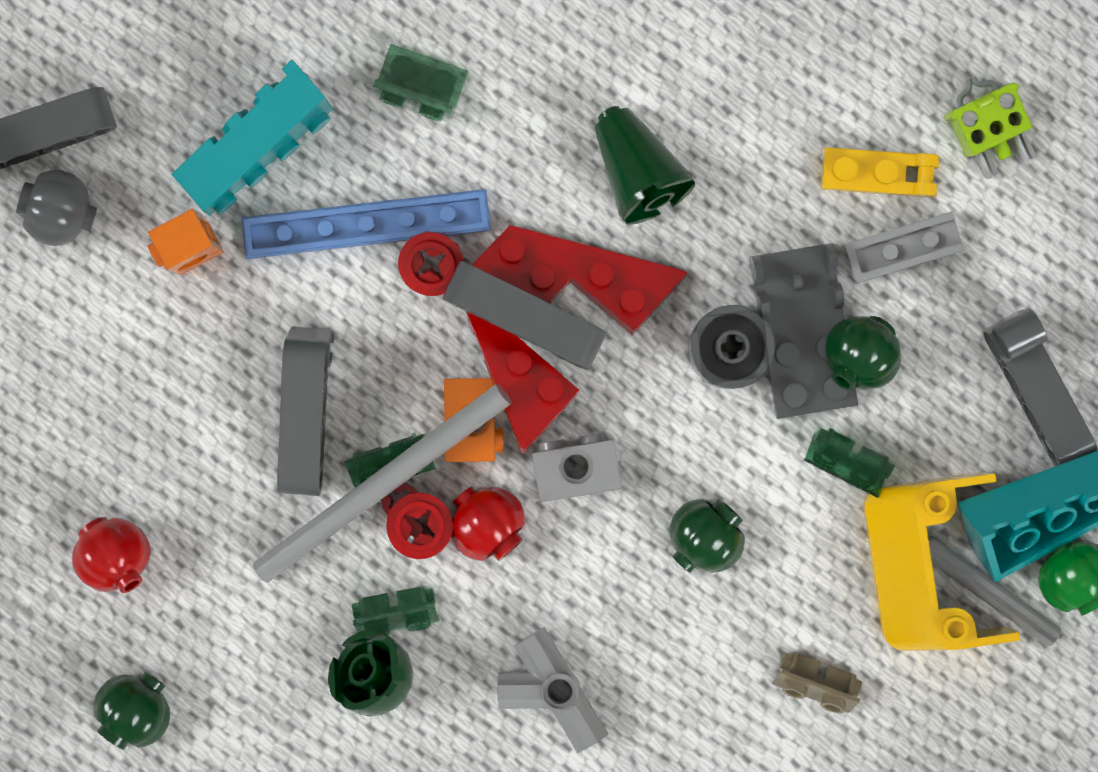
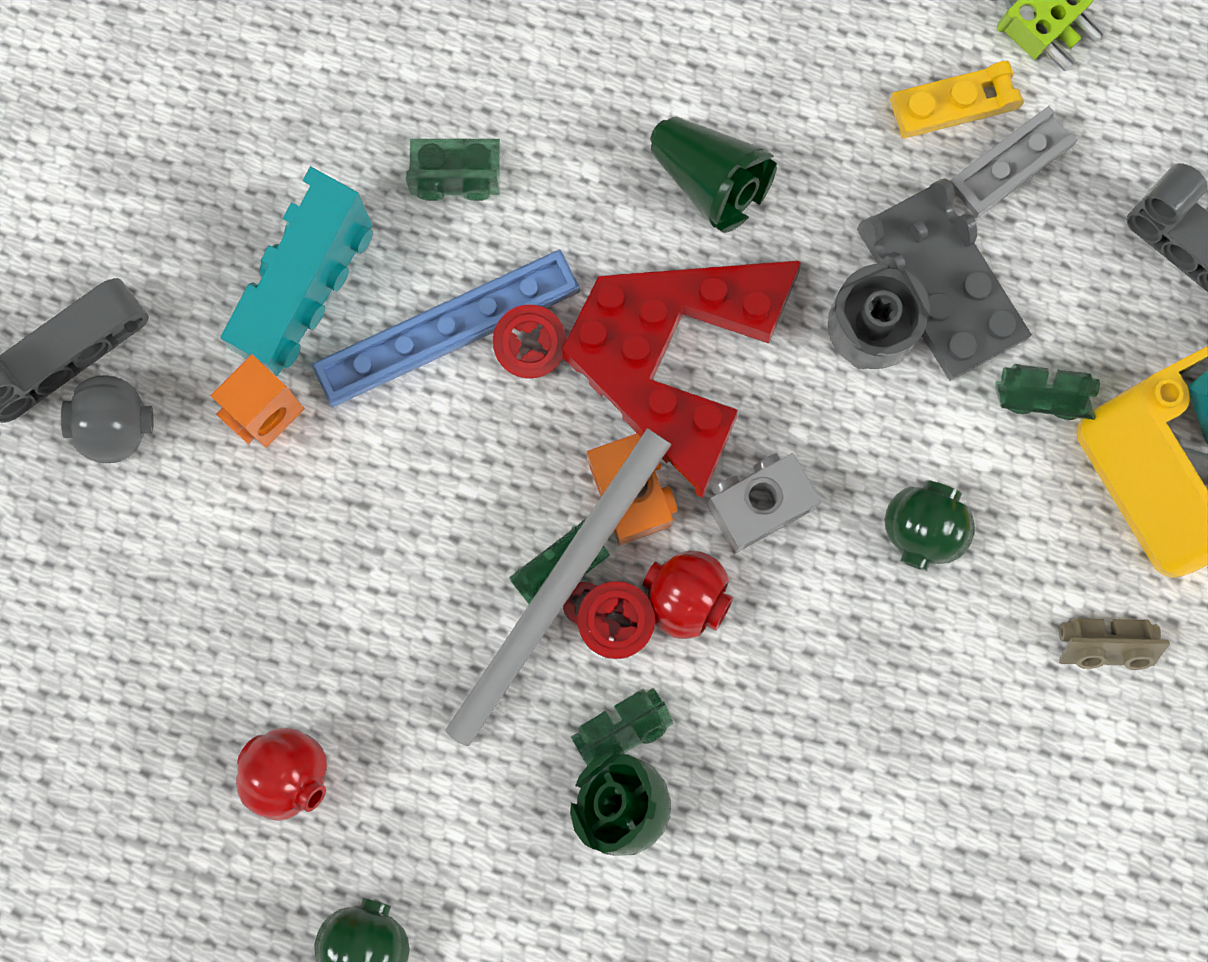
camera: 15 degrees left, 10 degrees down
(303, 410) = (446, 542): dark grey beam -> none
(524, 315) = (653, 349): dark grey beam -> none
(532, 690) = (805, 758): light grey piece -> none
(863, 353) = (1017, 276): dark green plant -> none

